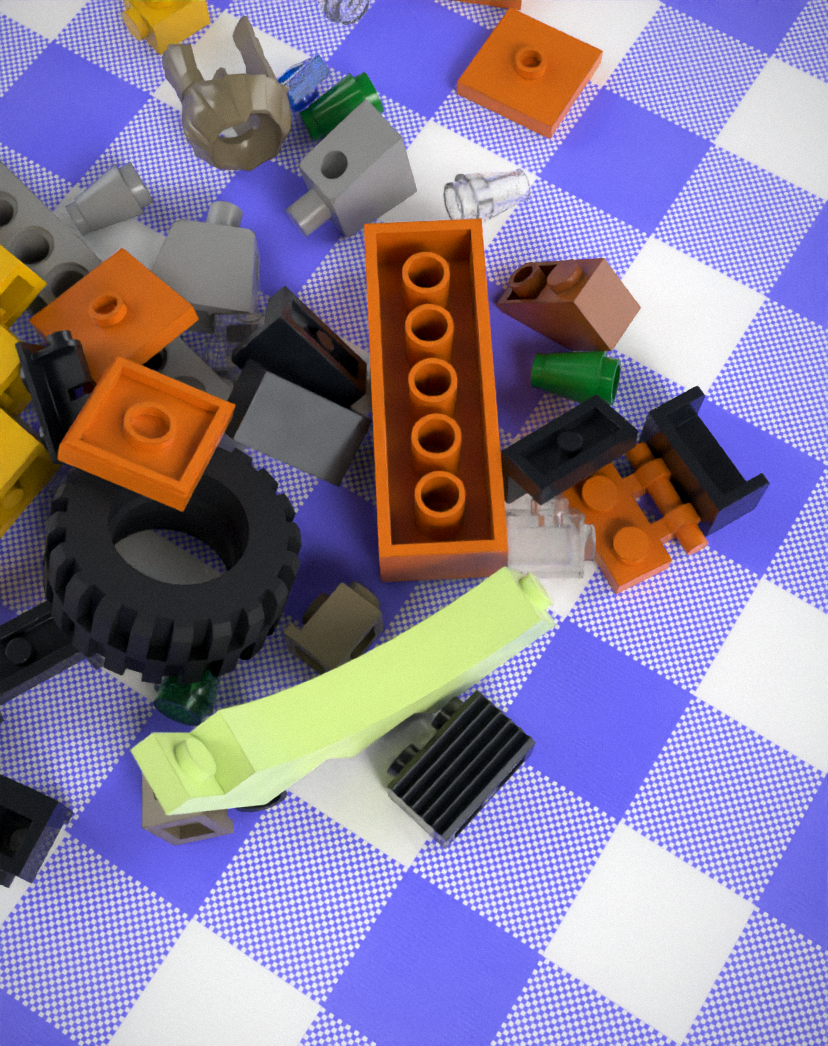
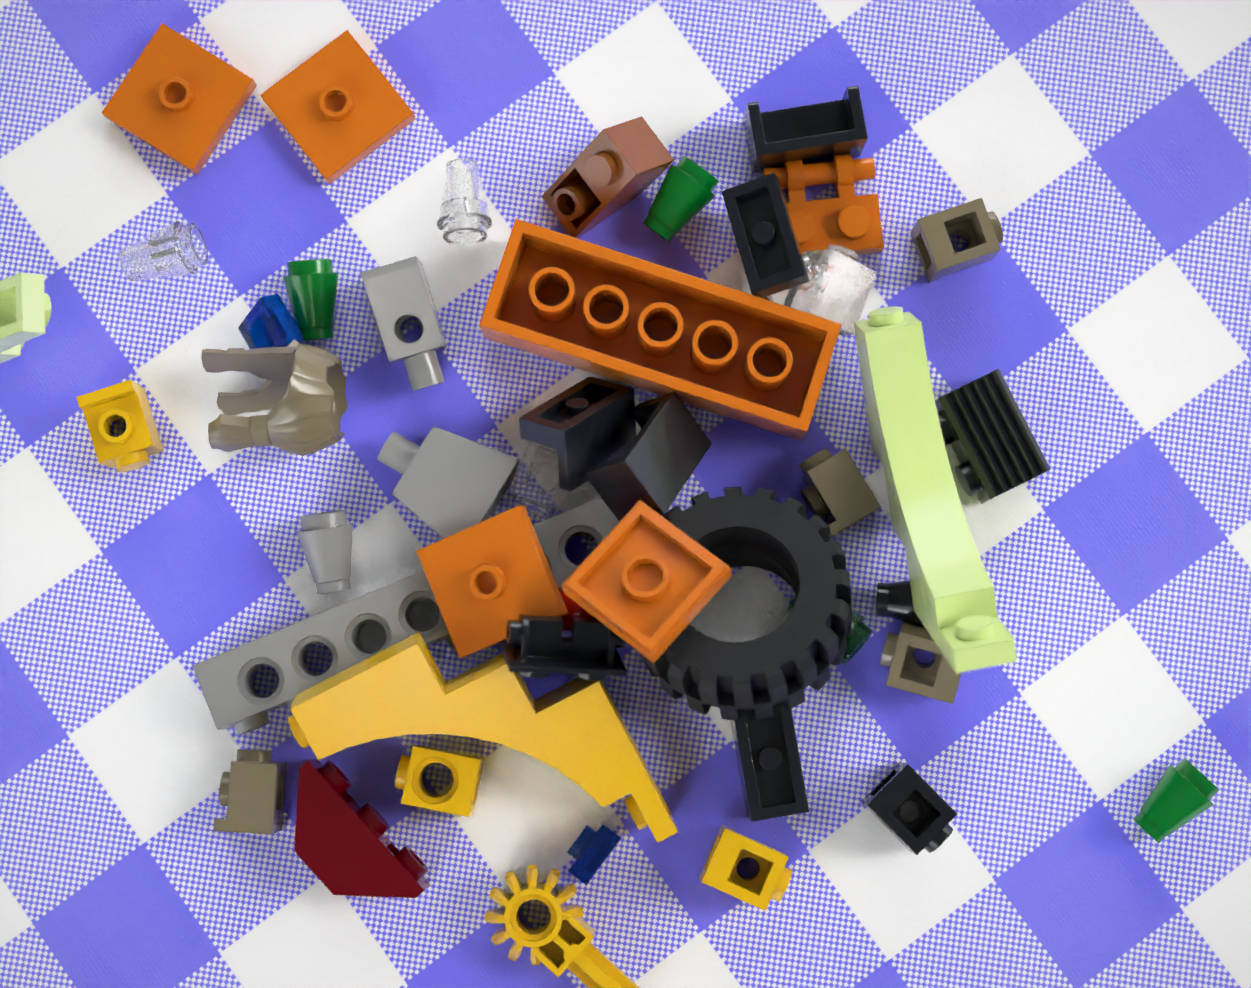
camera: 70 degrees left, 15 degrees up
(663, 634) = (971, 222): none -> dark tan brick

